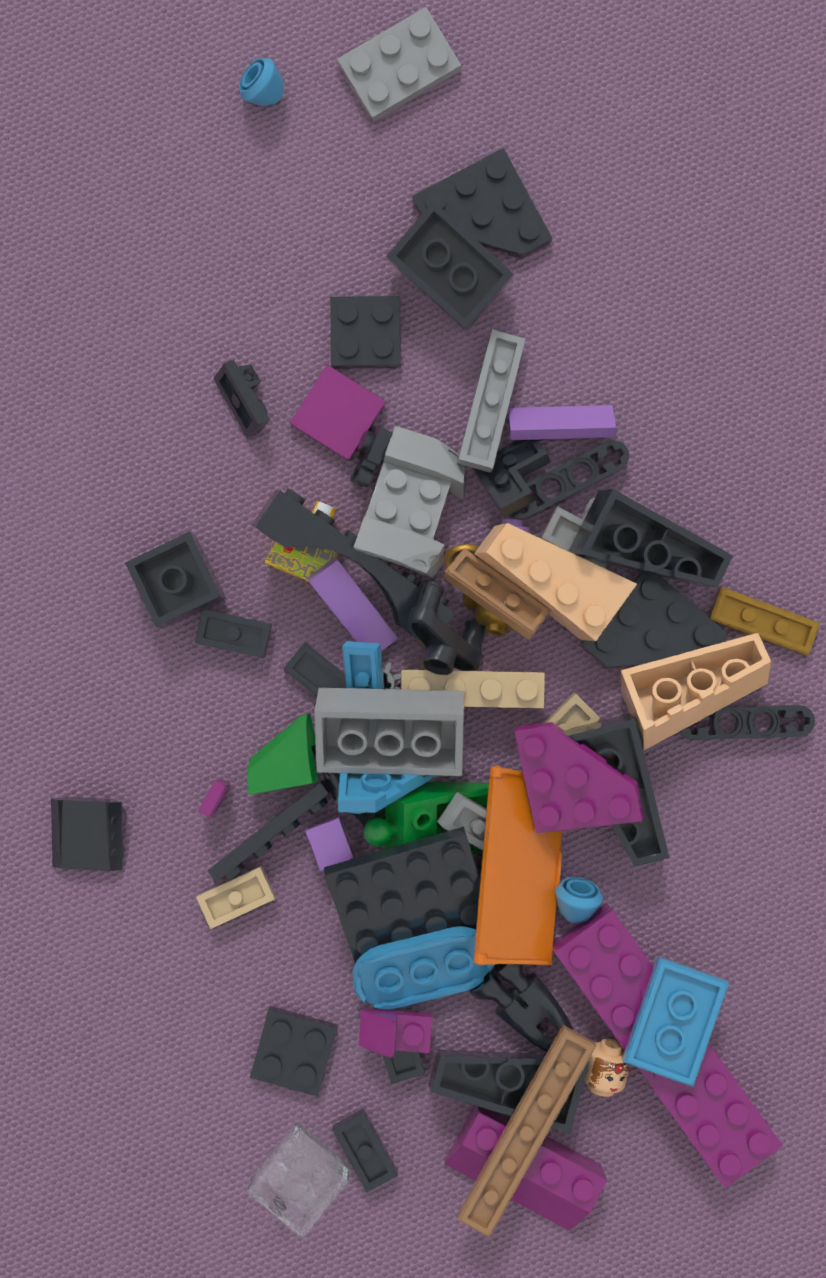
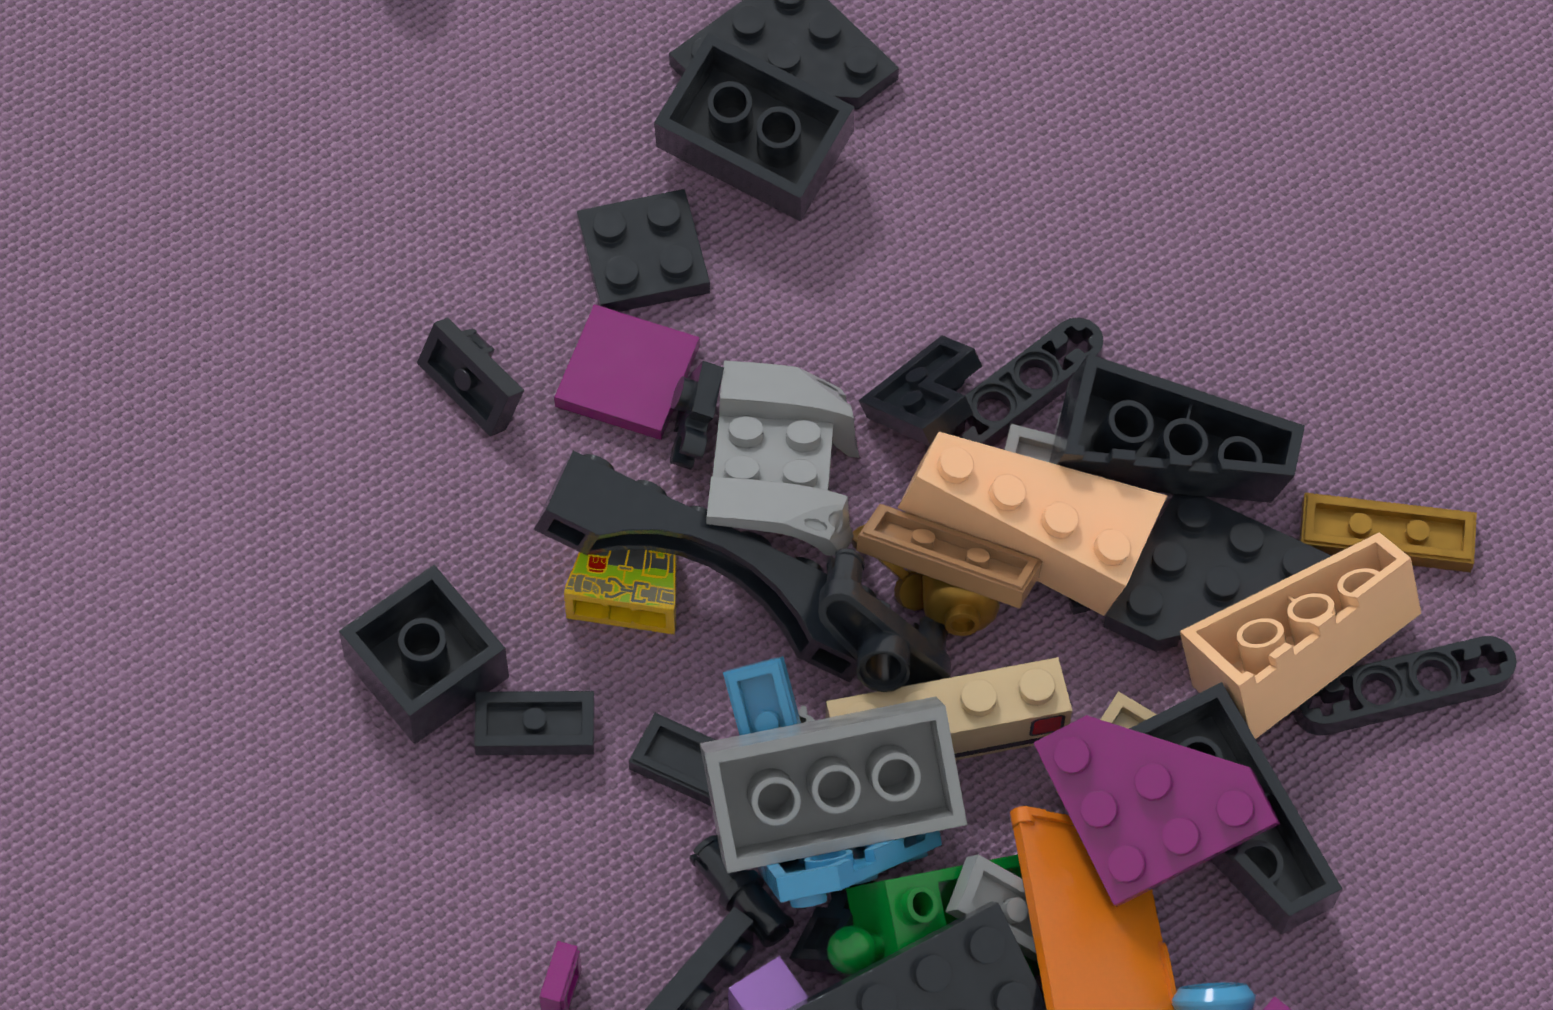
camera: 15 degrees left, 25 degrees down
(285, 760) = (666, 894): green slope -> none
(351, 605) = (711, 620): medium lavender tile -> none
(491, 401) = (865, 300): light grey plate -> none
(561, 422) = (983, 311): medium lavender tile -> none

